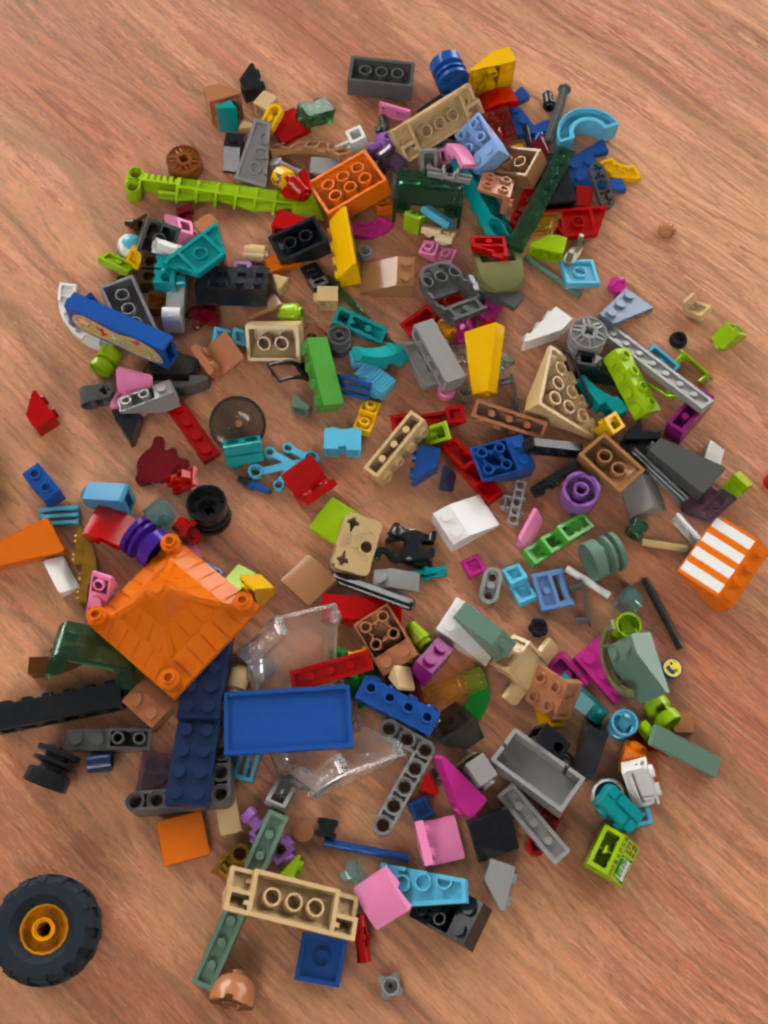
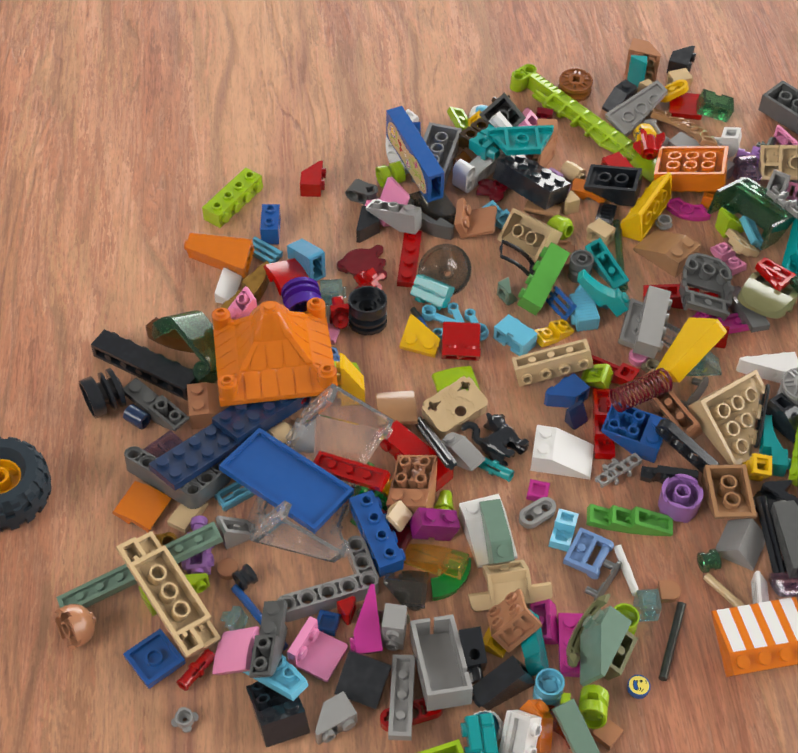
camera: 45 degrees right, 15 degrees down
(269, 502) = (419, 338): none -> yellow wing
(404, 870) = (270, 641): none -> dark grey slope
(447, 332) = (679, 313): light orange bush -> none
(497, 410) = (658, 381): none -> dark red piece
(529, 529) = (615, 494): bright pink slope -> none
(538, 623) = (549, 565): black plate -> none
(603, 556) = (655, 554): sand green wheel -> none

